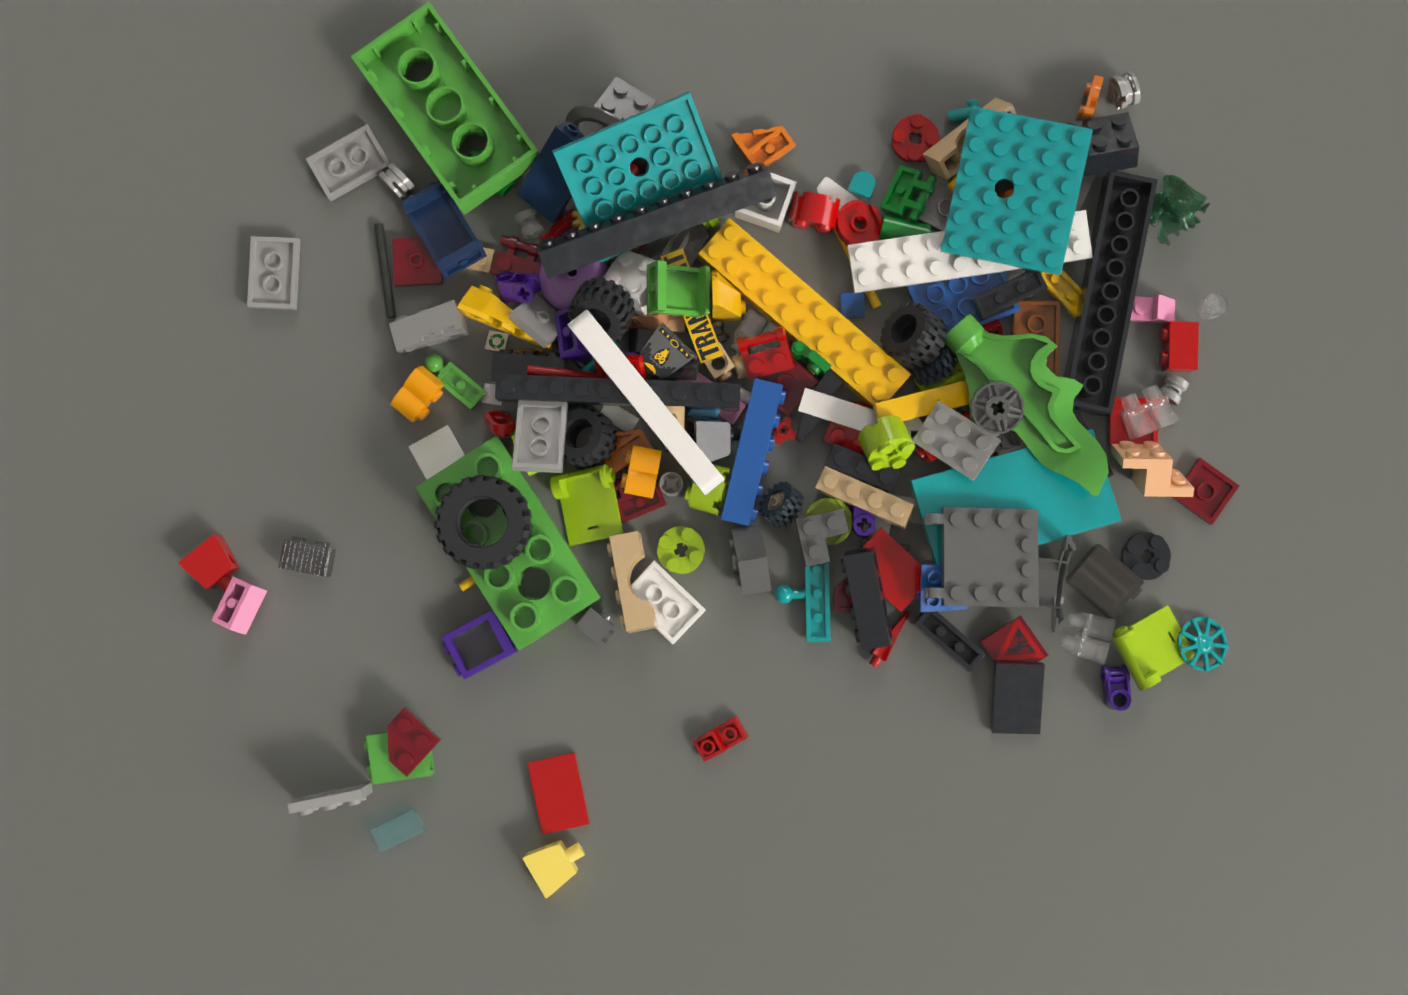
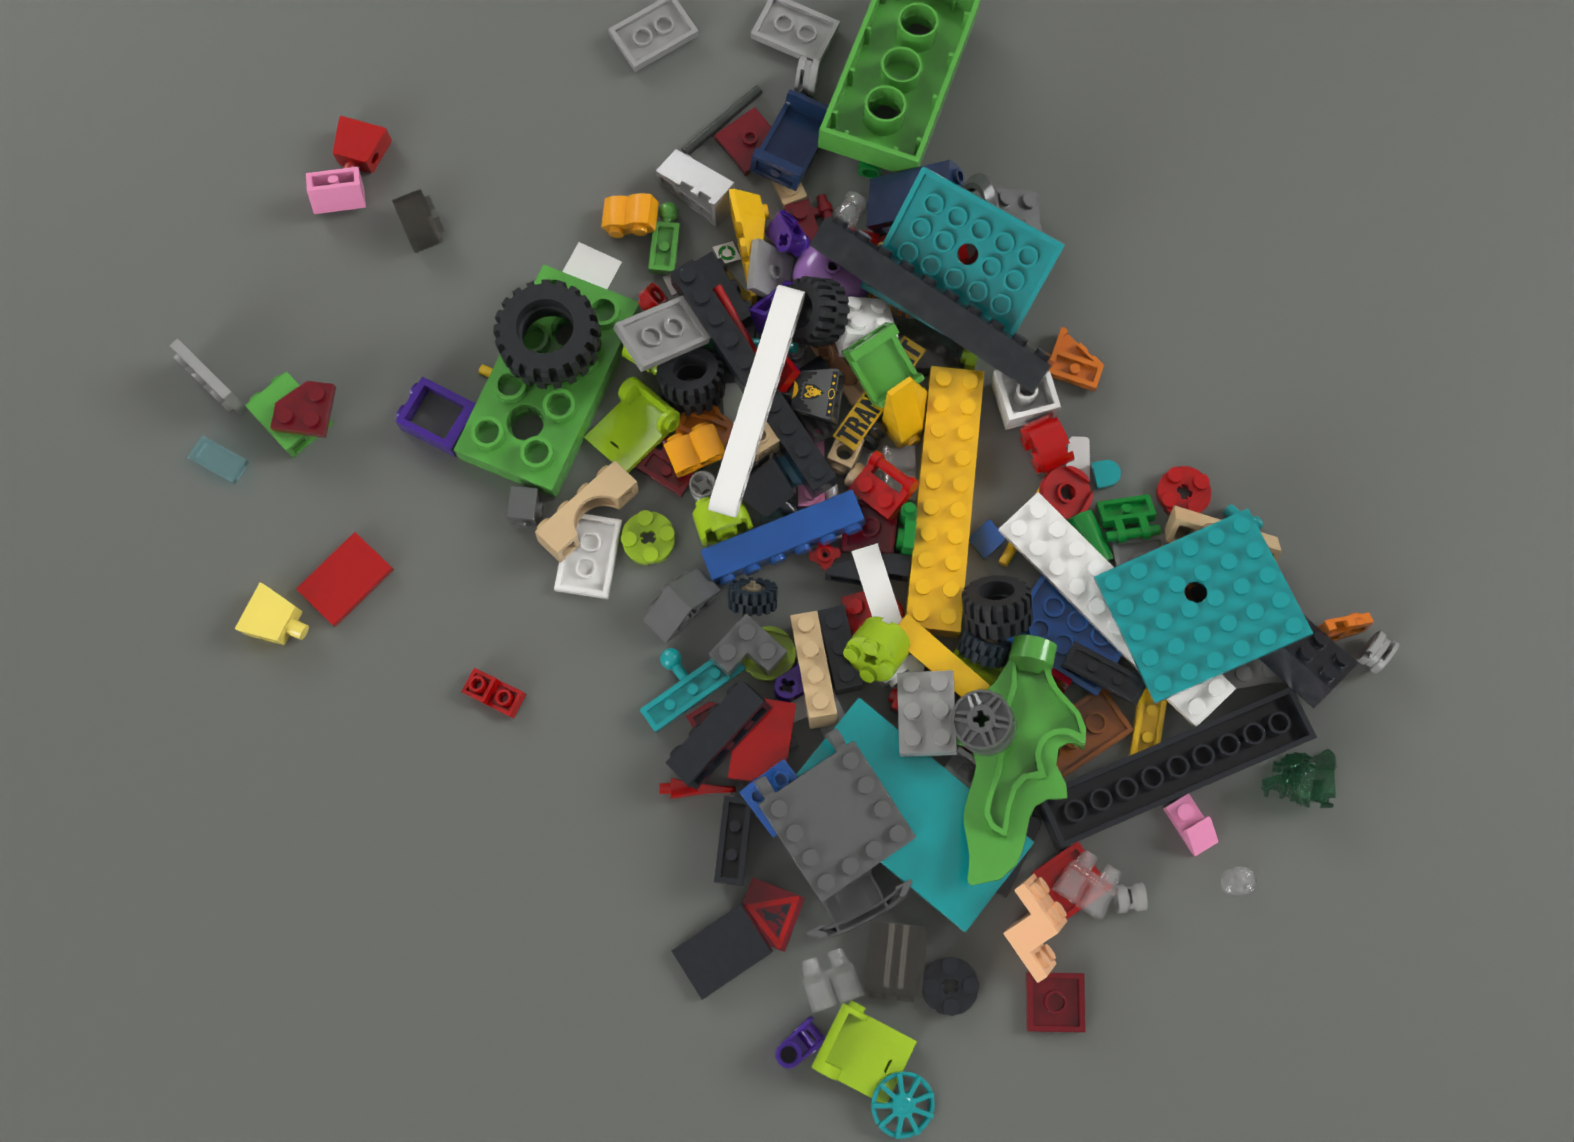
camera: 55 degrees right, 10 degrees down
(1179, 346) = (1176, 875): red piece -> none

